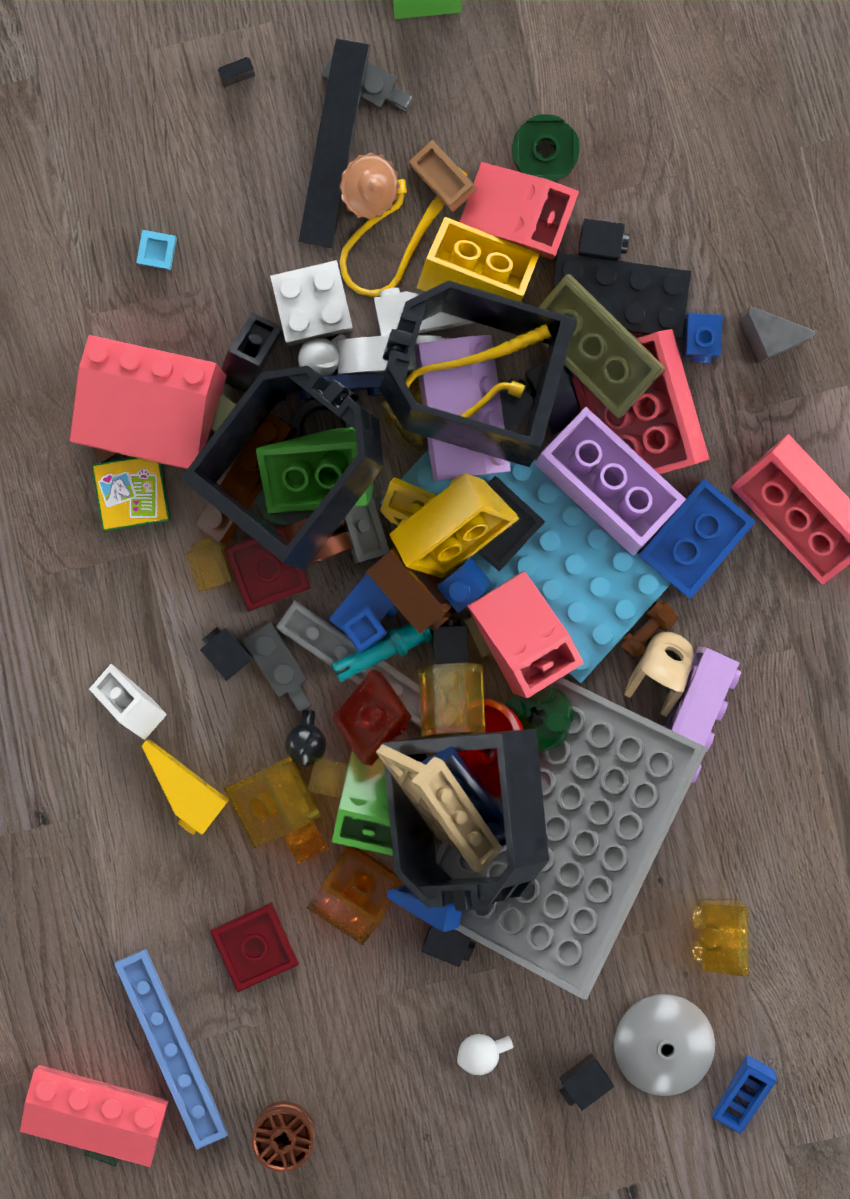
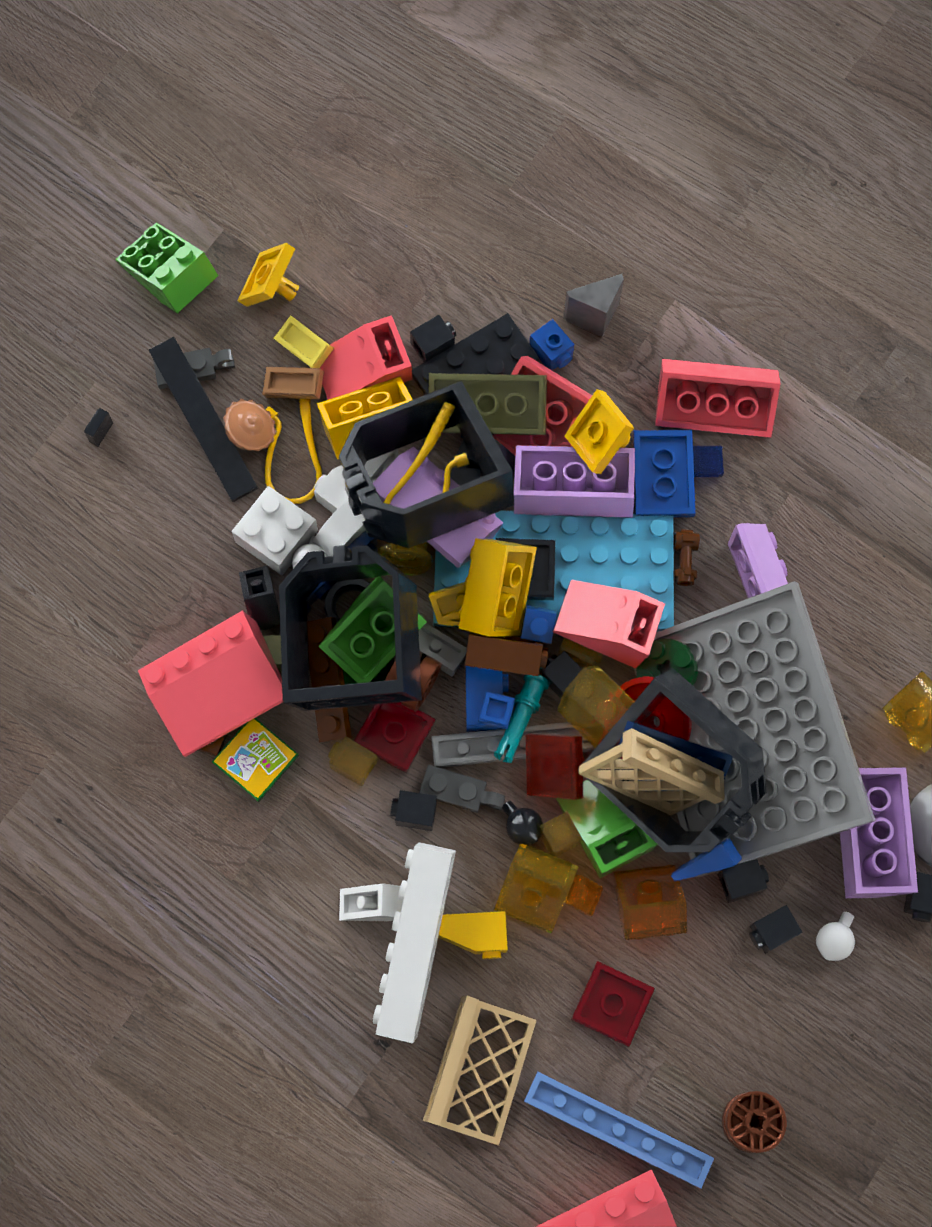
camera: 40 degrees left, 15 degrees down
(84, 883) = (453, 1061): none -> tan fence
(130, 766) = (415, 942): none -> white brick
(156, 250) = (138, 583): medium azure plate -> none
(437, 1003) = (774, 929): none -> black brick
(483, 145) = (303, 343): none -> light yellow tile
(503, 55) = (268, 277): none -> yellow tile
(558, 134) = (347, 300): dark green plate -> none
(578, 1028) = (881, 855): none -> lavender slope
(662, 462) = (599, 432): none -> yellow tile
(663, 668) = (708, 563): tan piece -> none
(746, 559) = (708, 461): none -> clear blue tile

